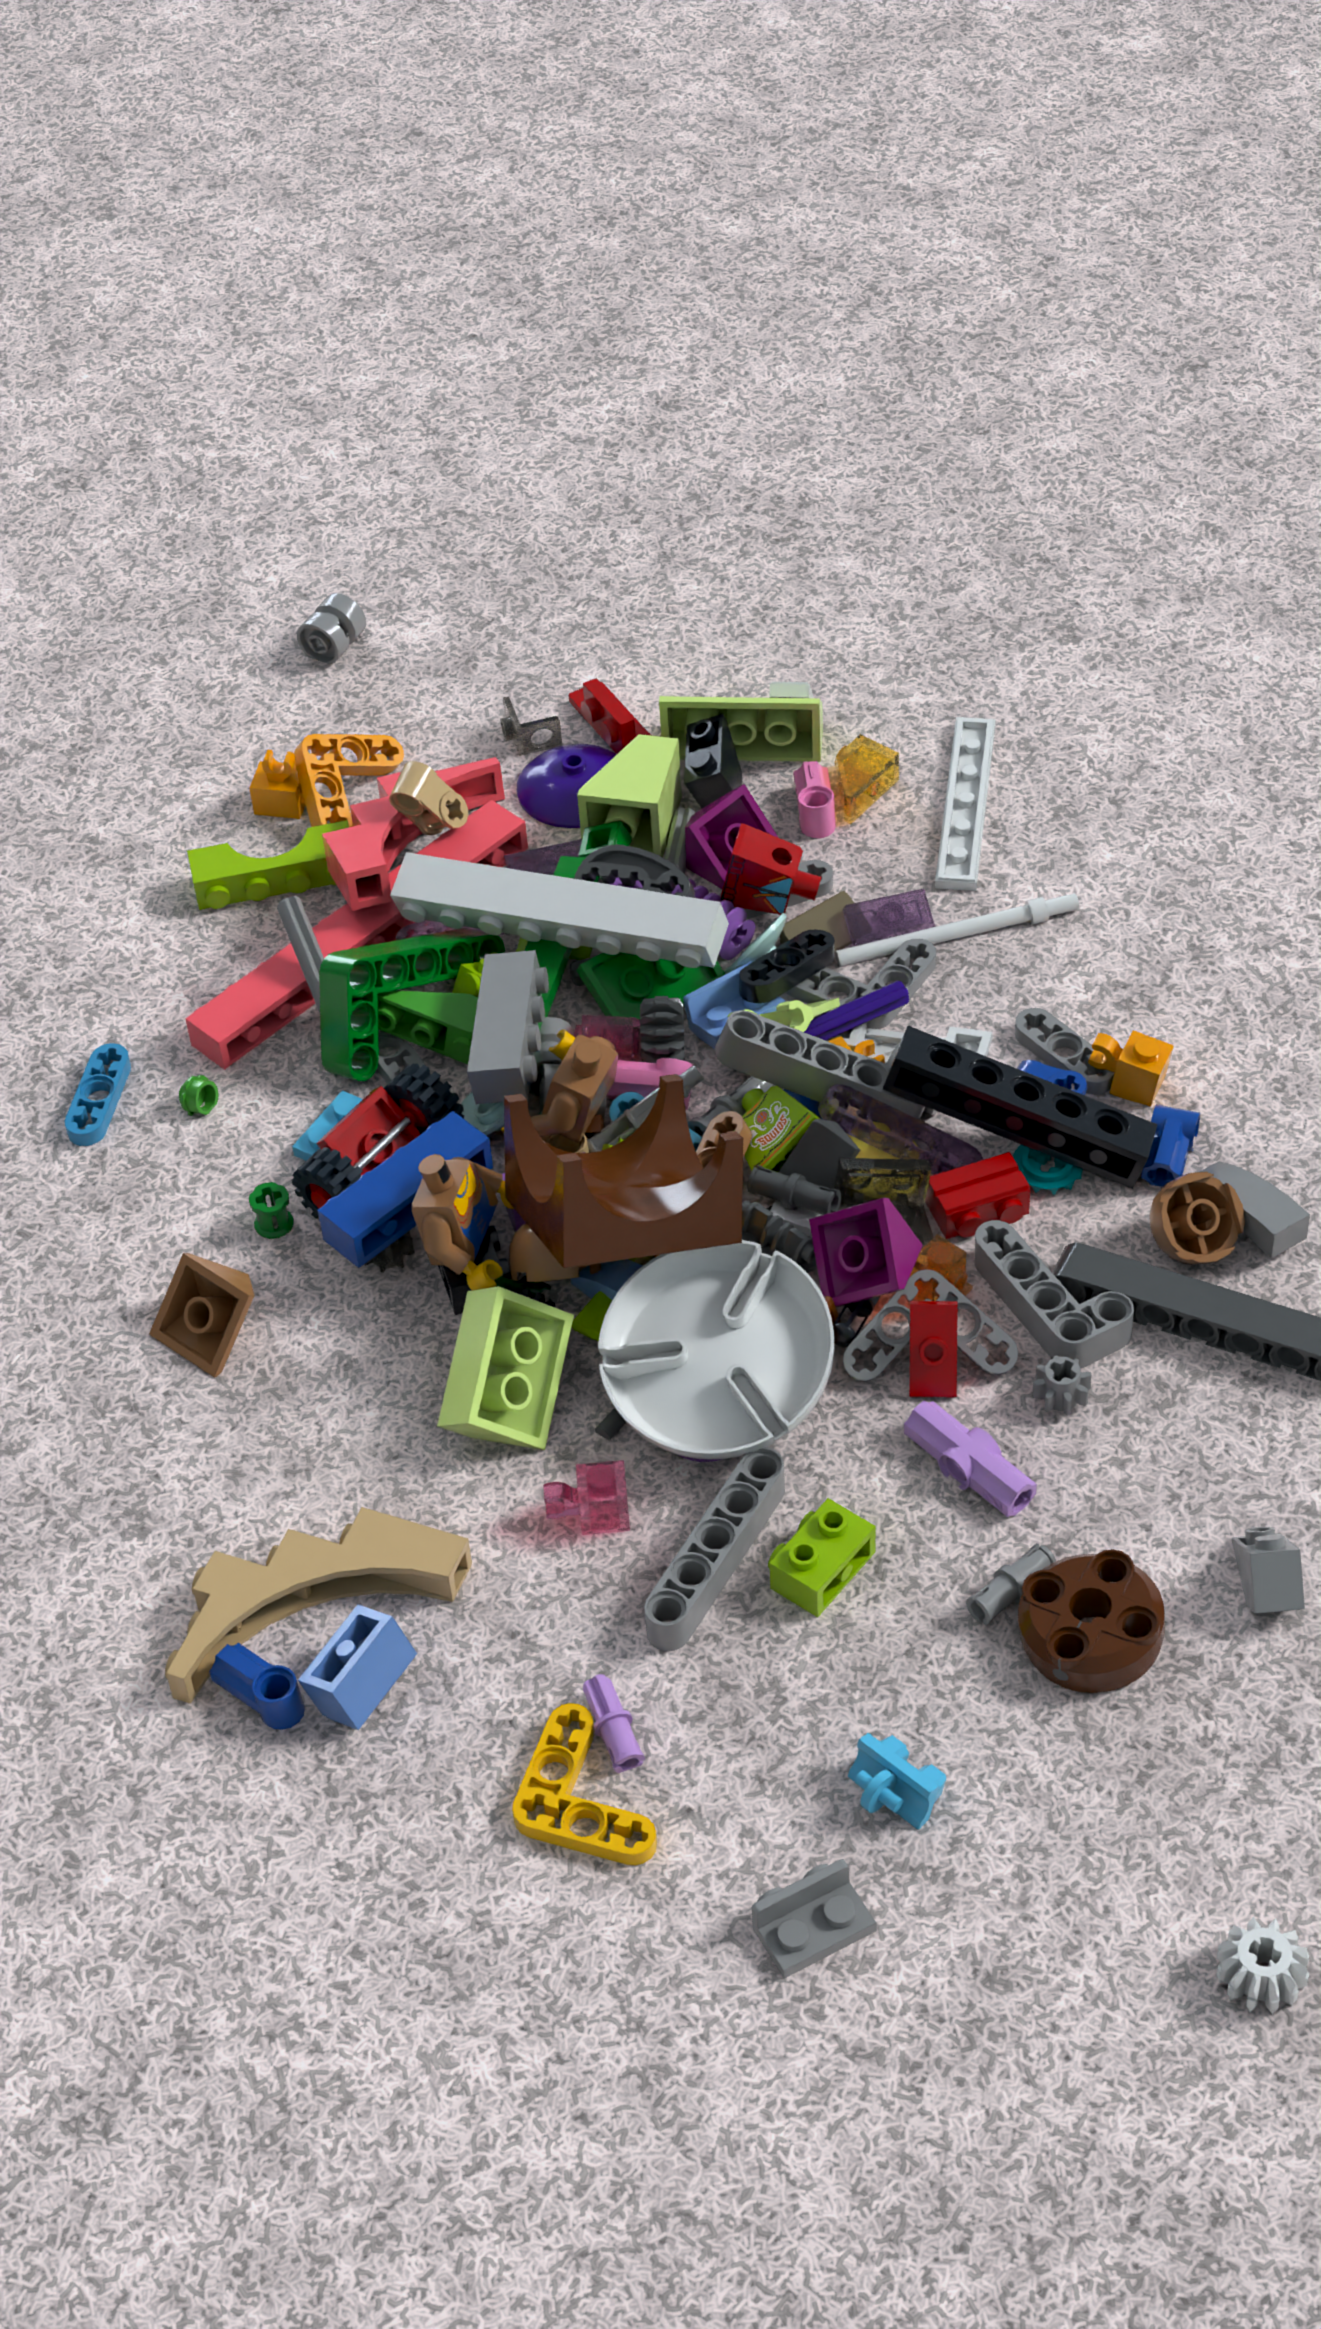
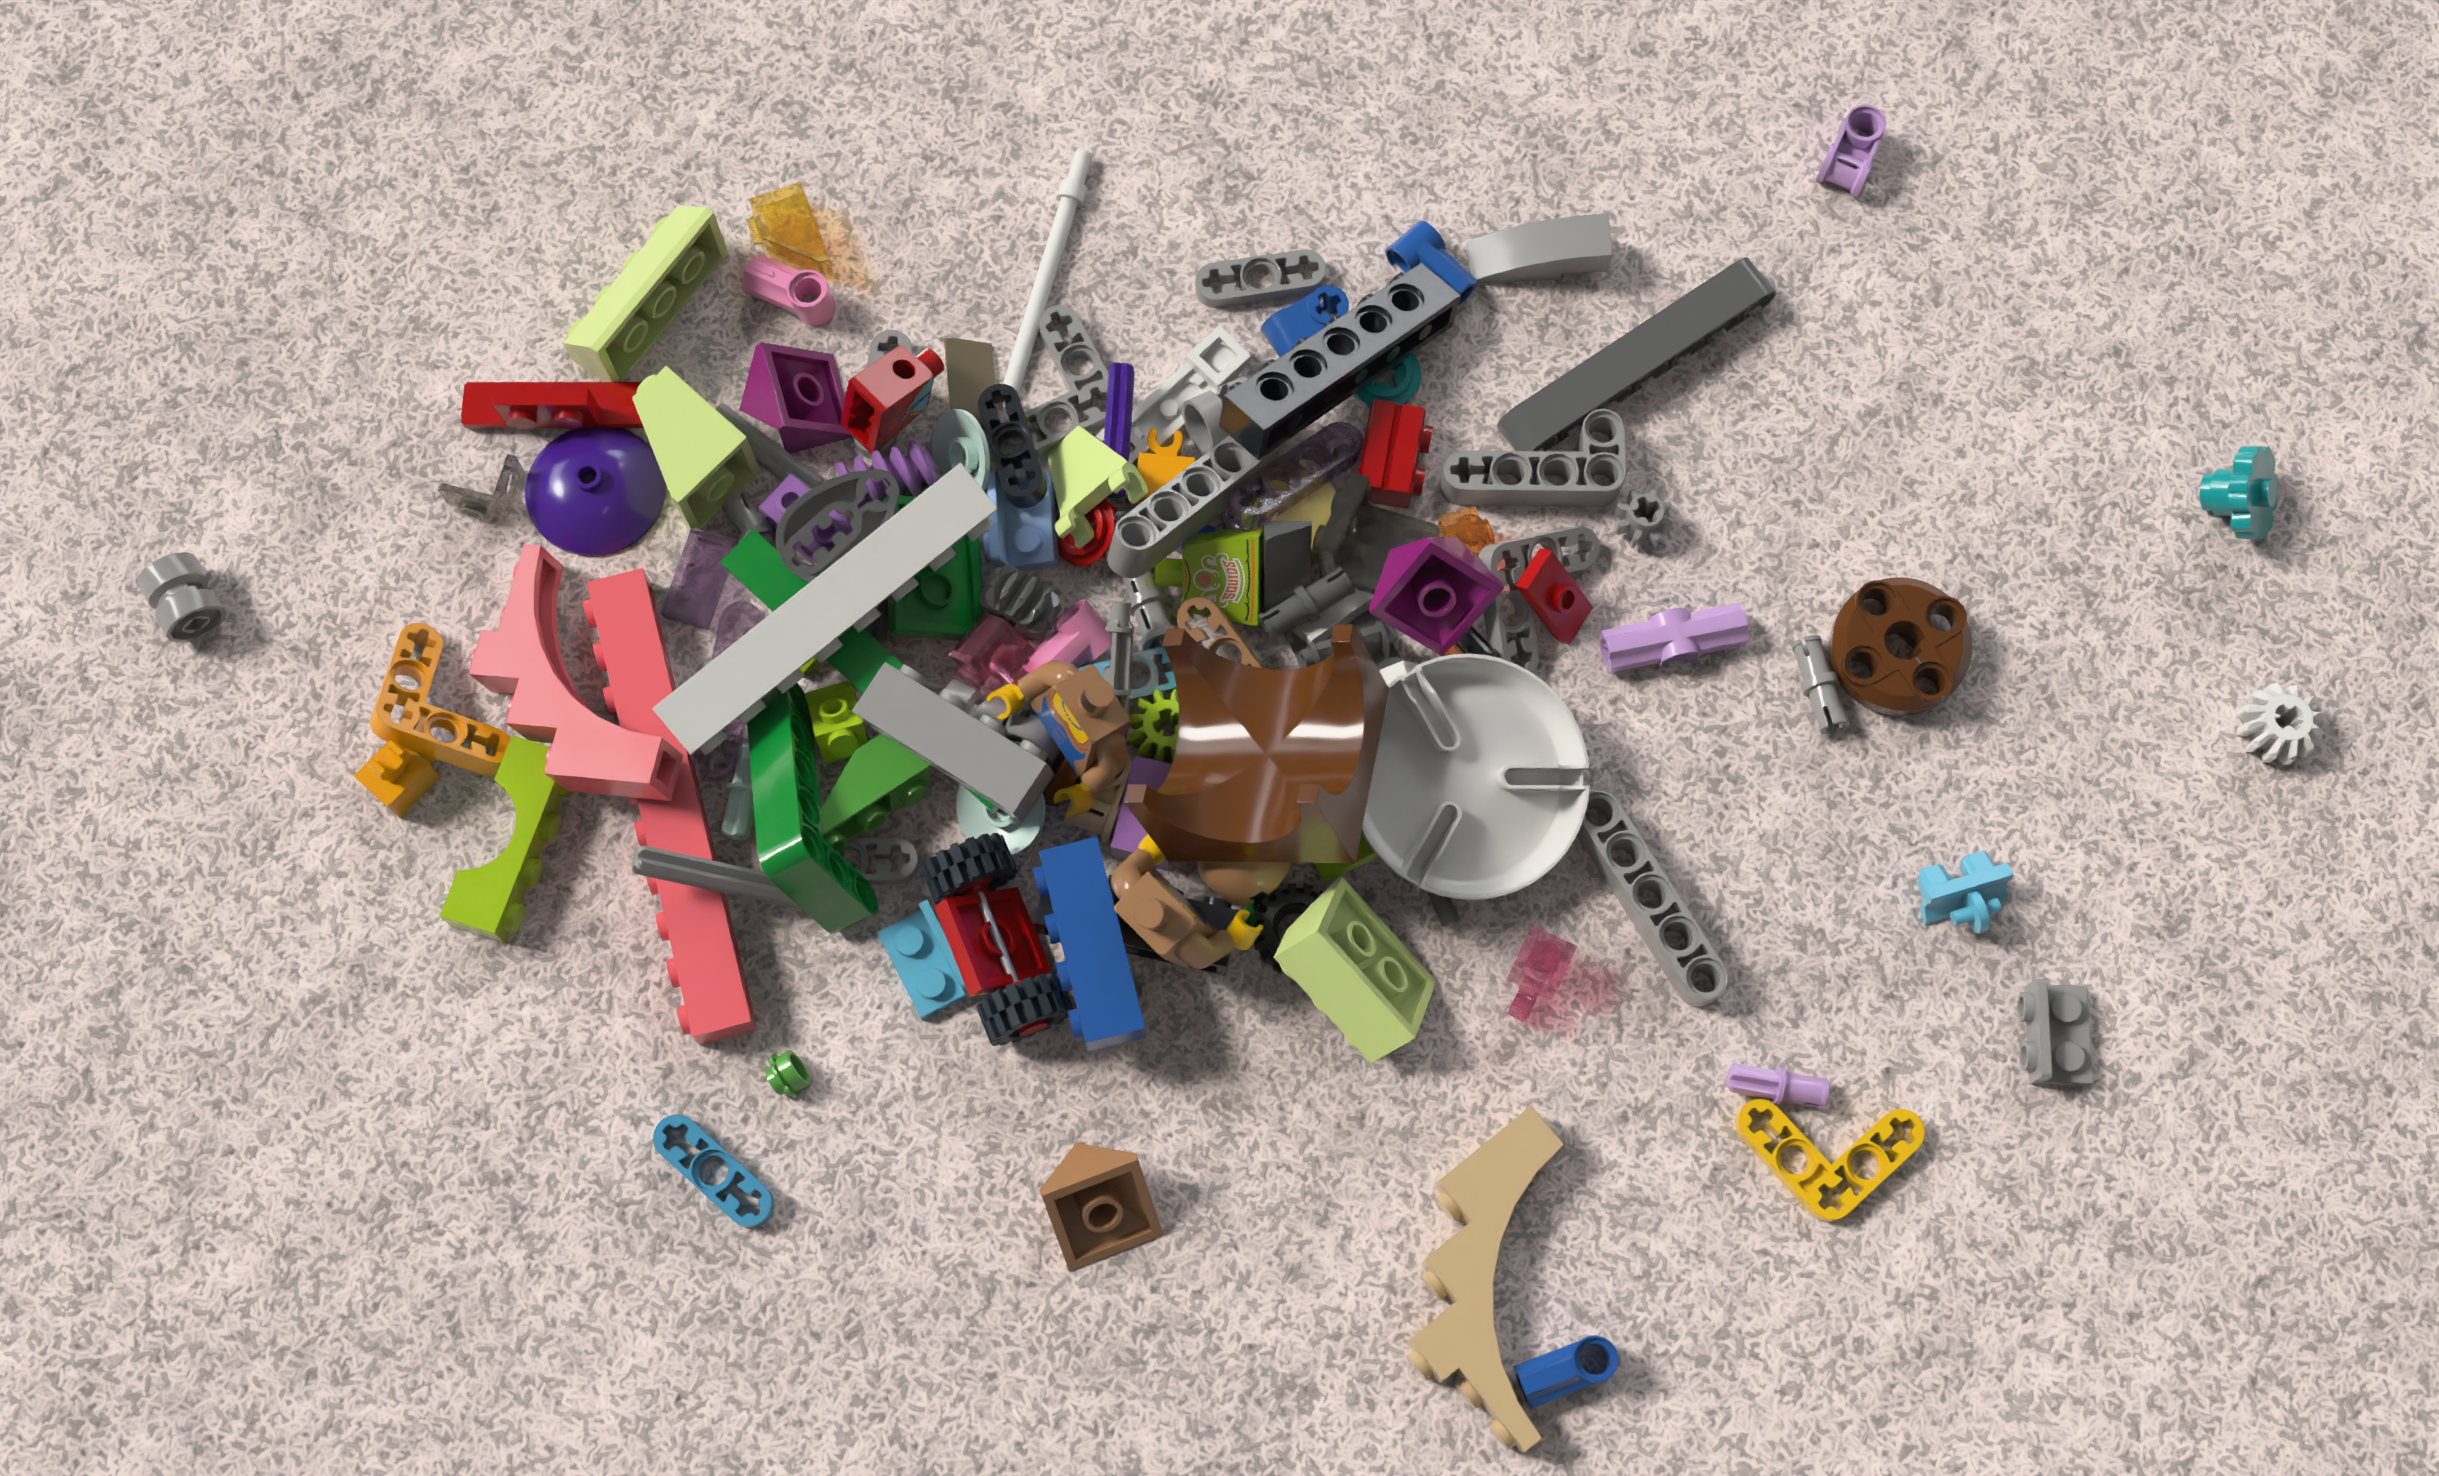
camera: 65 degrees left, 25 degrees up
(279, 1201) = (1007, 1091): green bush -> none
(357, 1666) = (1609, 1275): medium blue brick -> none
(427, 800) = (567, 644): tan piece -> none
(604, 835) = (728, 513): green slope -> none
(710, 760) = (685, 349): black slope -> none
(790, 690) = (643, 226): white tile -> none
(821, 1556) = (1709, 818): lime brick -> none
(888, 917) = (997, 321): clear purple plate -> none
(965, 804) = (884, 164): white tile -> none
(1136, 1068) = (1334, 232): light orange brick -> none
(1196, 1218) = (1545, 302): medium nougat cylinder -> none
(1269, 1570) = (1927, 482): light grey slope -> none

